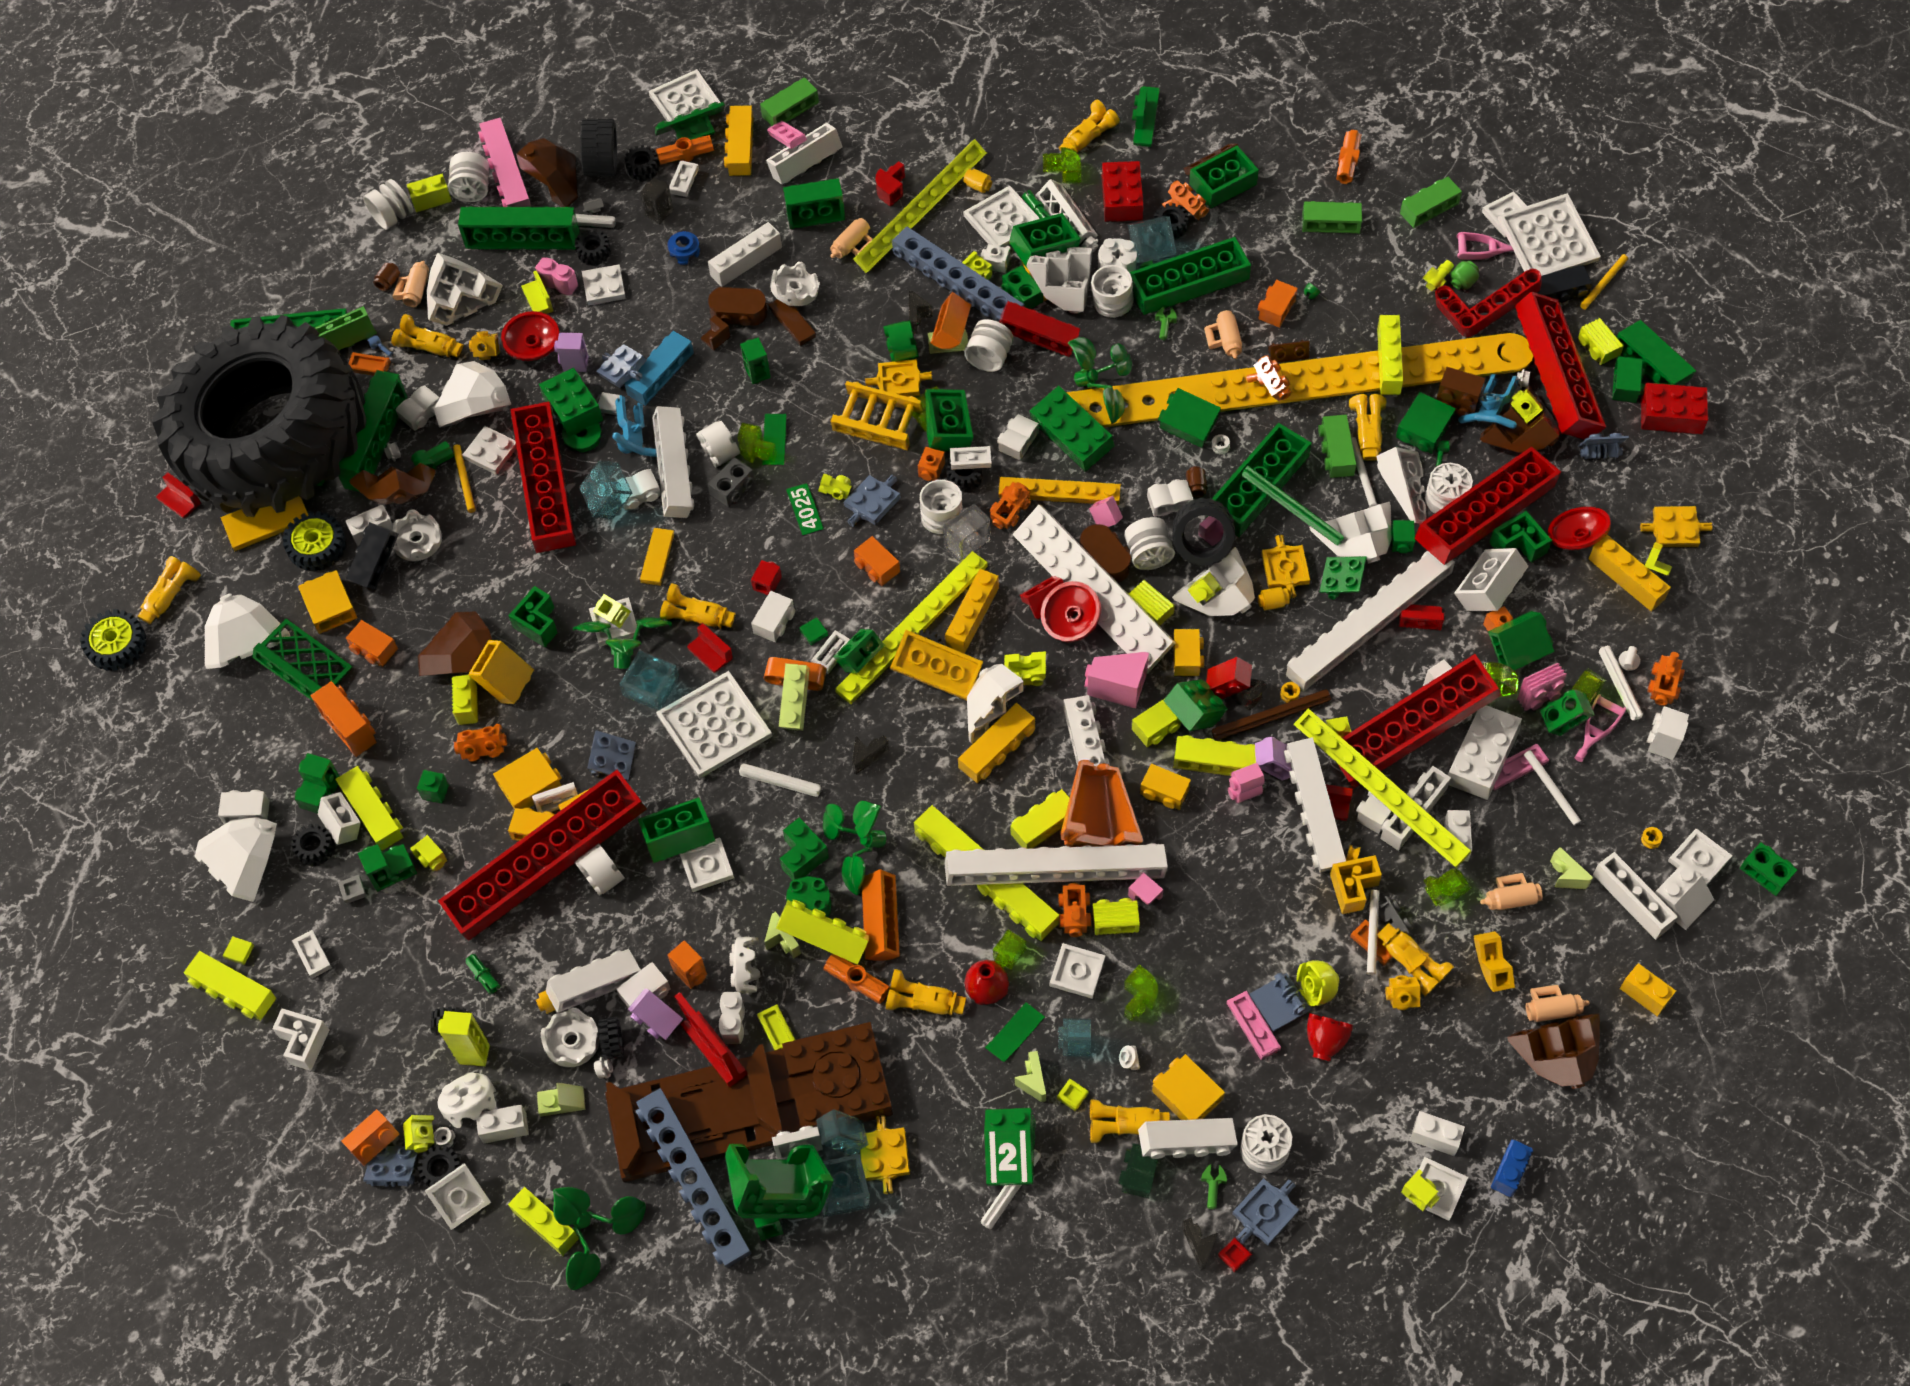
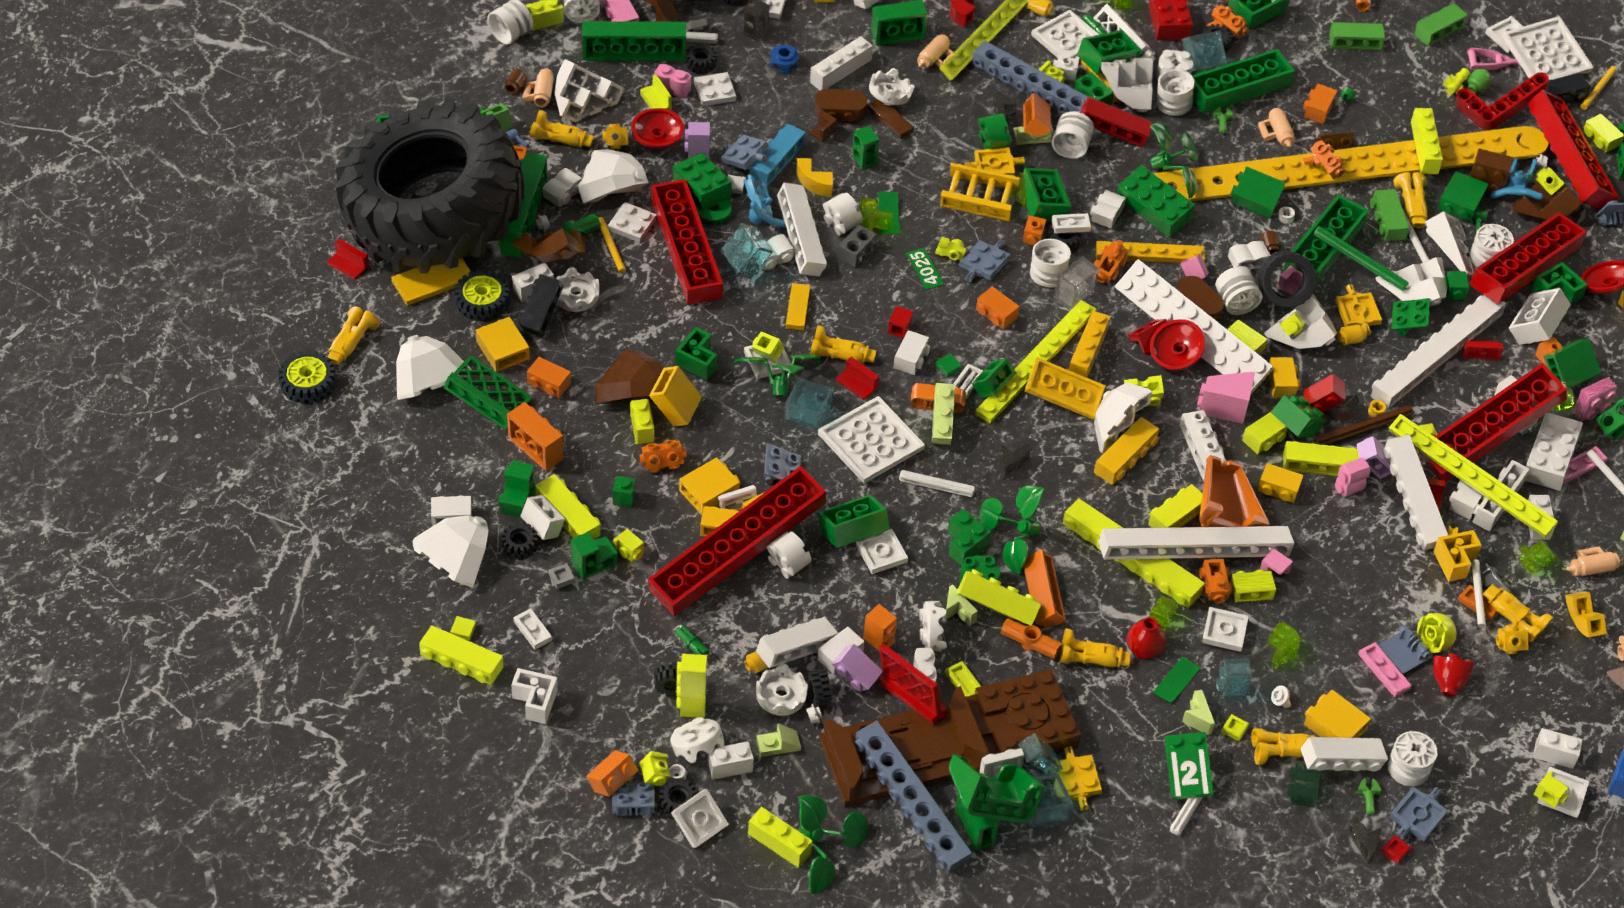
camera: 10 degrees left, 10 degrees down
(699, 402) = (816, 182): none -> yellow brick

